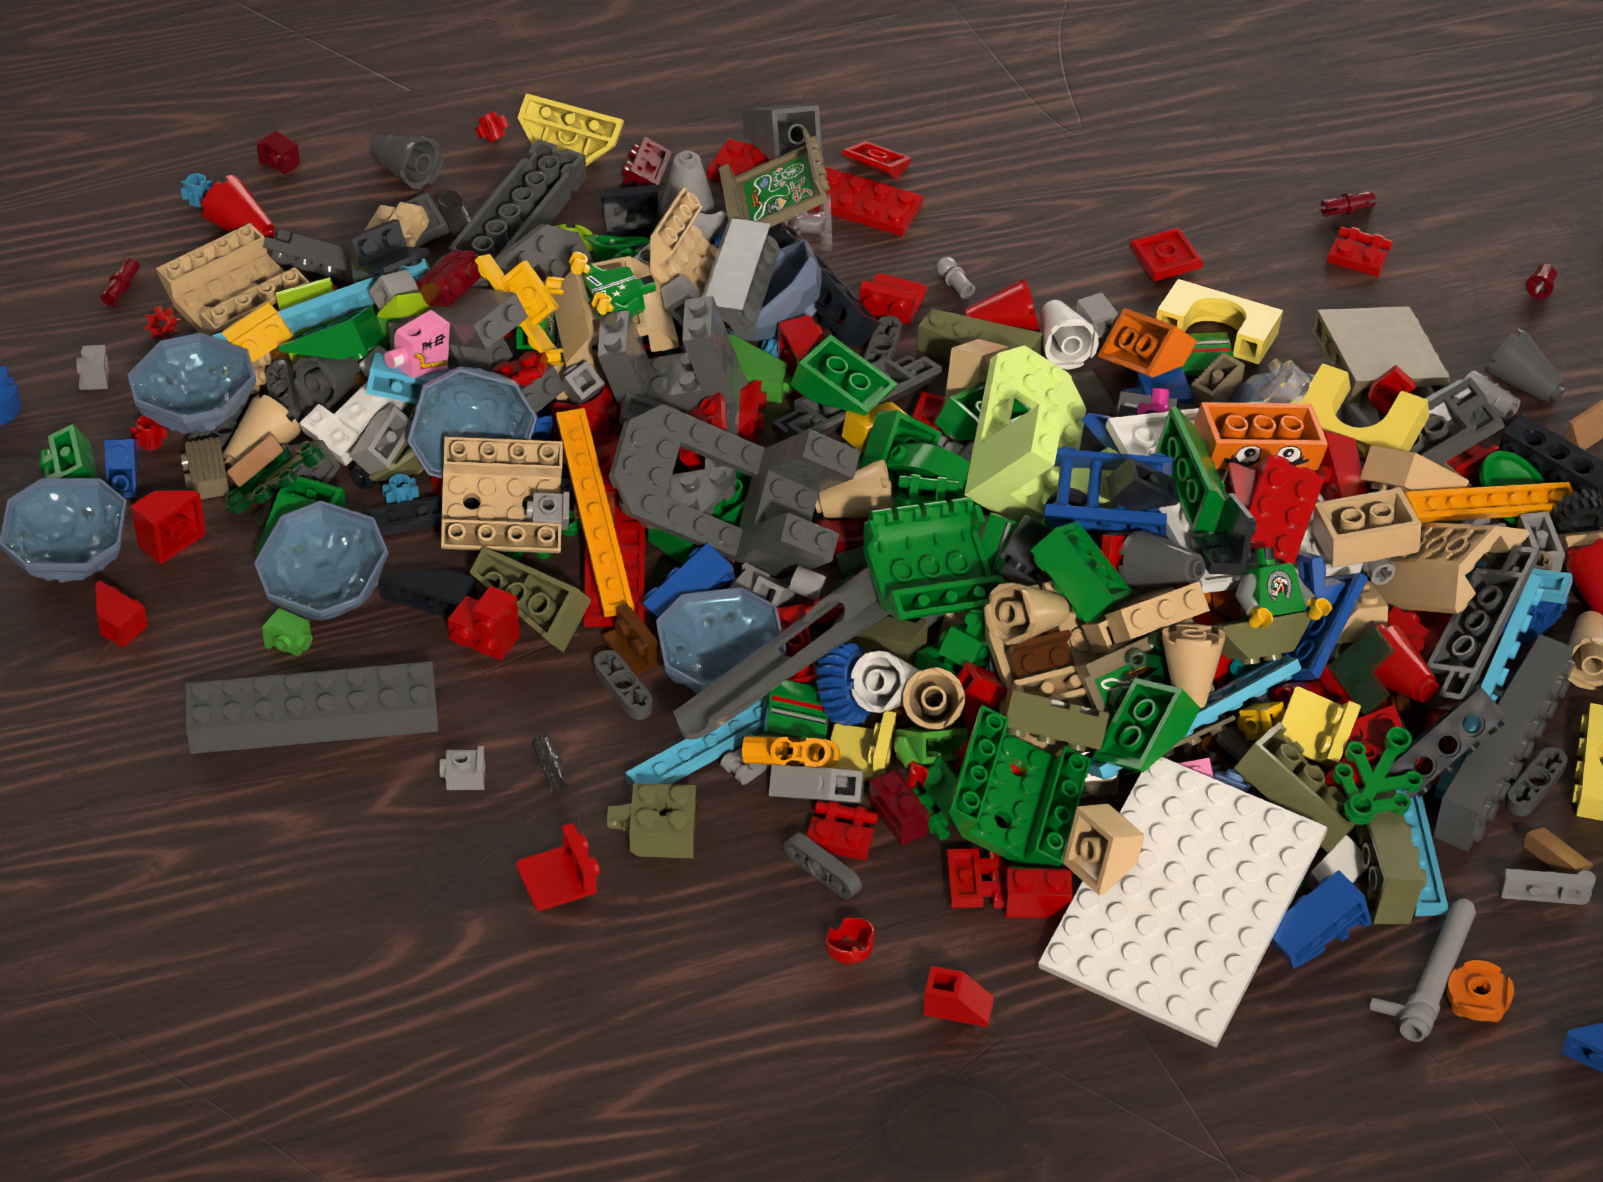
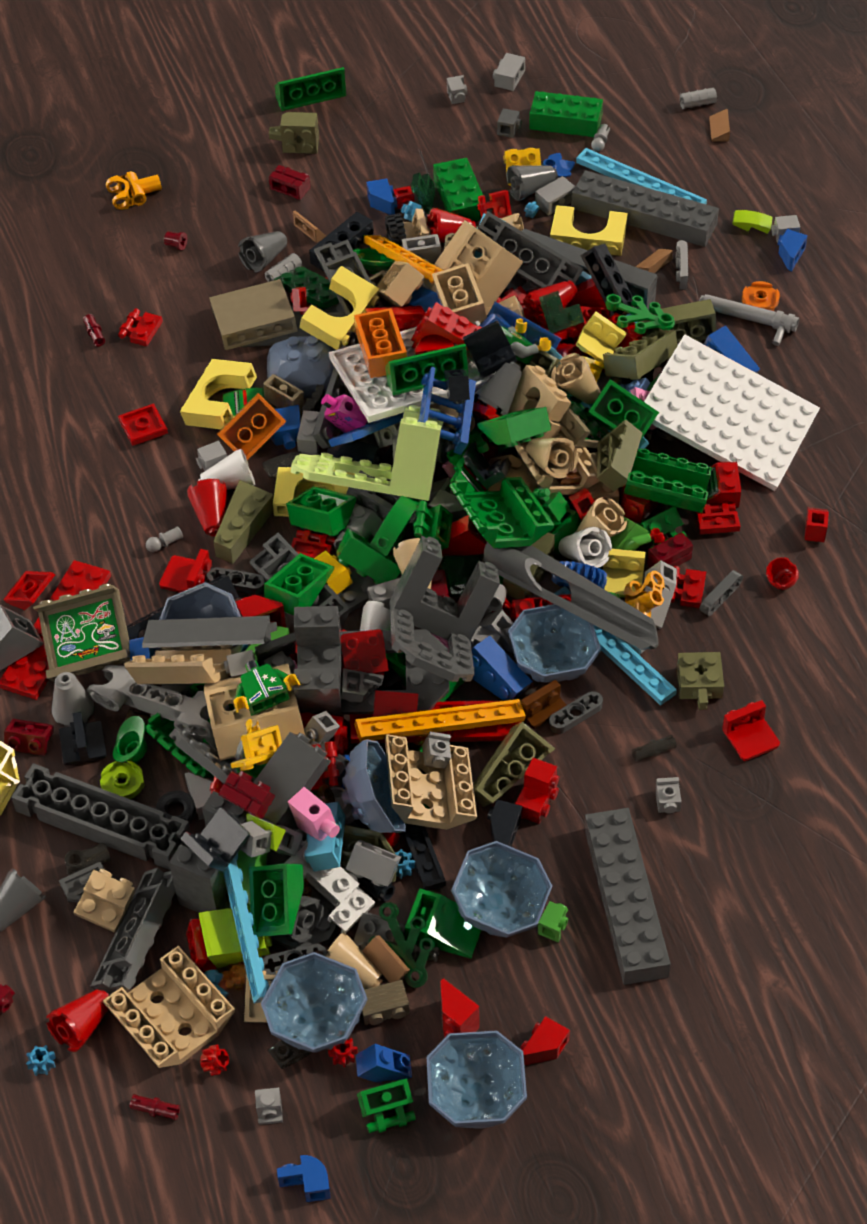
camera: 90 degrees left, 5 degrees up
(259, 331) = (264, 956): yellow plate -> none
(970, 365) = (284, 512): tan slope -> none
(1102, 846) = (713, 436): tan slope -> none
(1286, 385) = (319, 338): clear brick -> none

